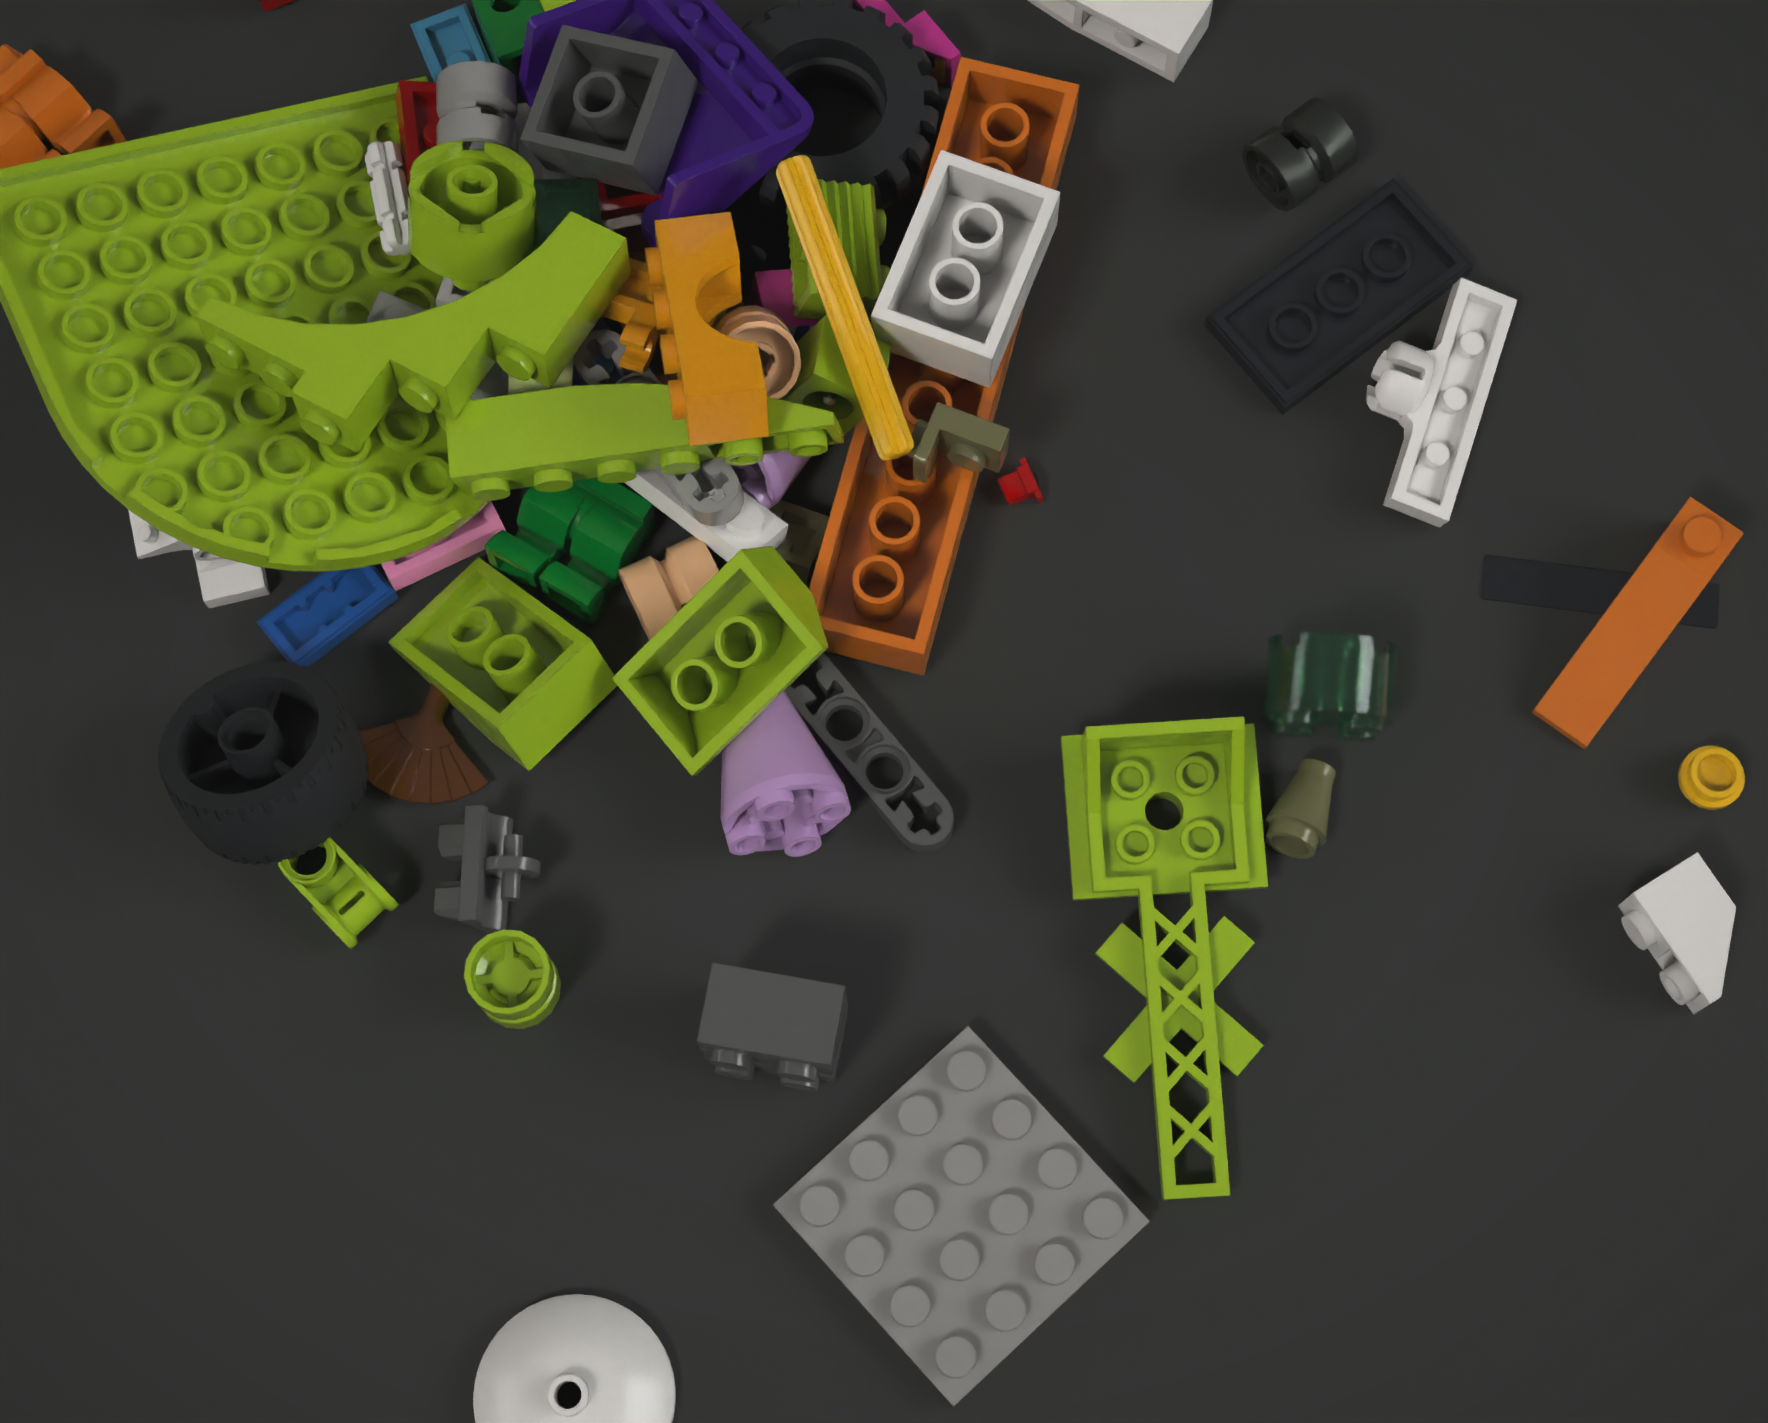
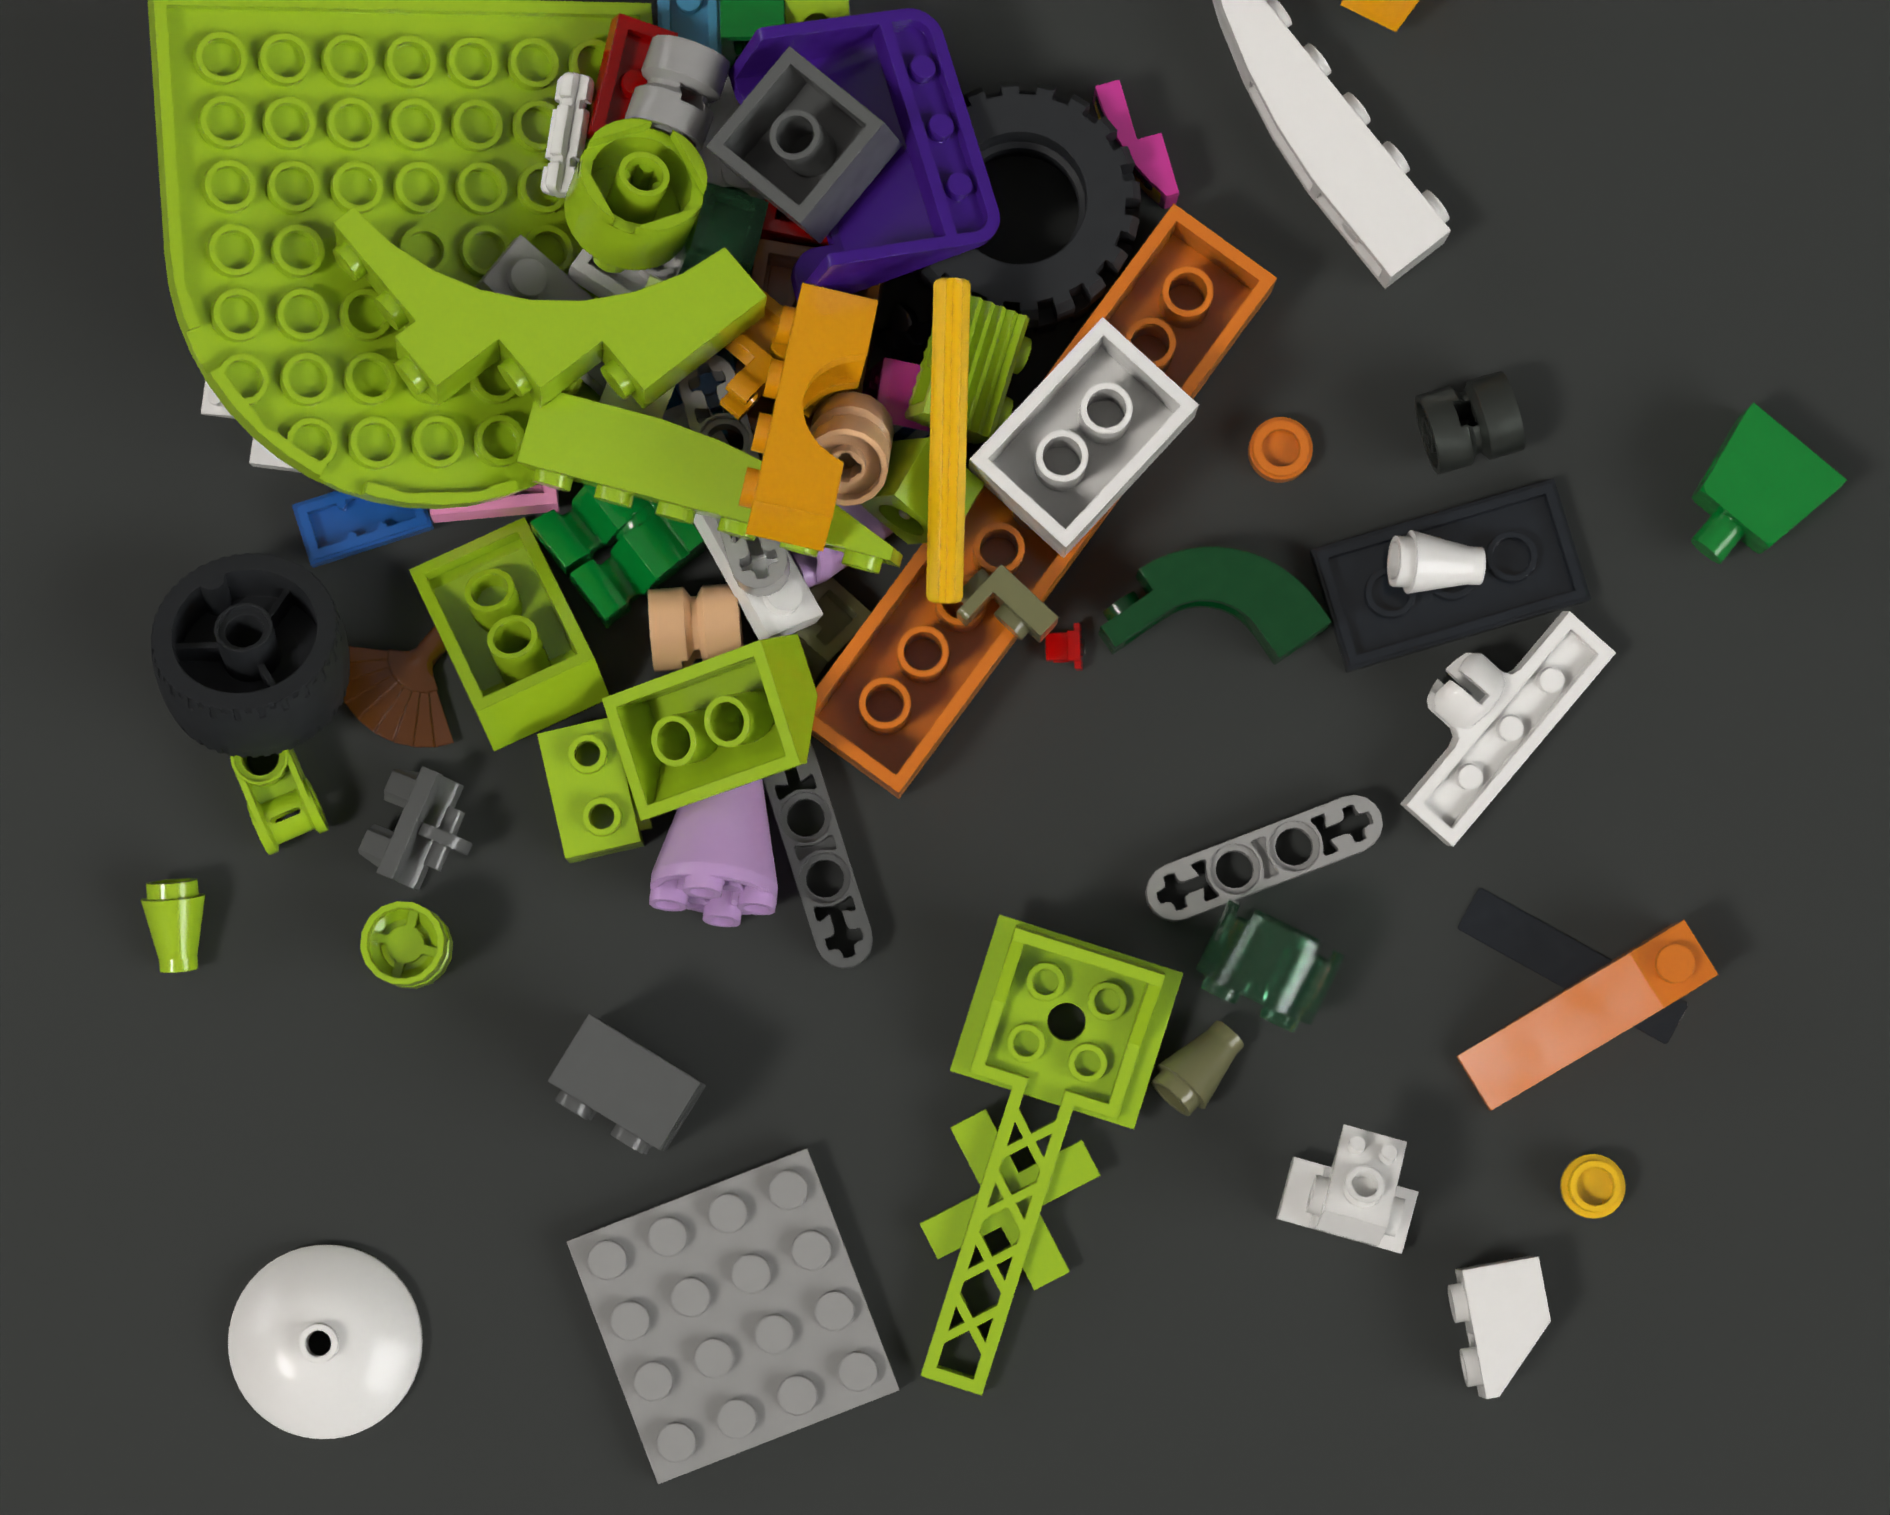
camera: 15 degrees right, 10 degrees up
(282, 1047) = (175, 922): none -> lime cone
(635, 772) = (590, 791): none -> lime brick
(1140, 245) = (1280, 449): none -> orange tile
(1141, 369) = (1230, 580): none -> dark green arch
(1275, 596) = (1265, 863): none -> light grey beam
(1321, 280) = (1431, 563): none -> white cone
(1506, 871) = (1355, 1195): none -> white tile
(1577, 114) = (1759, 486): none -> green torso

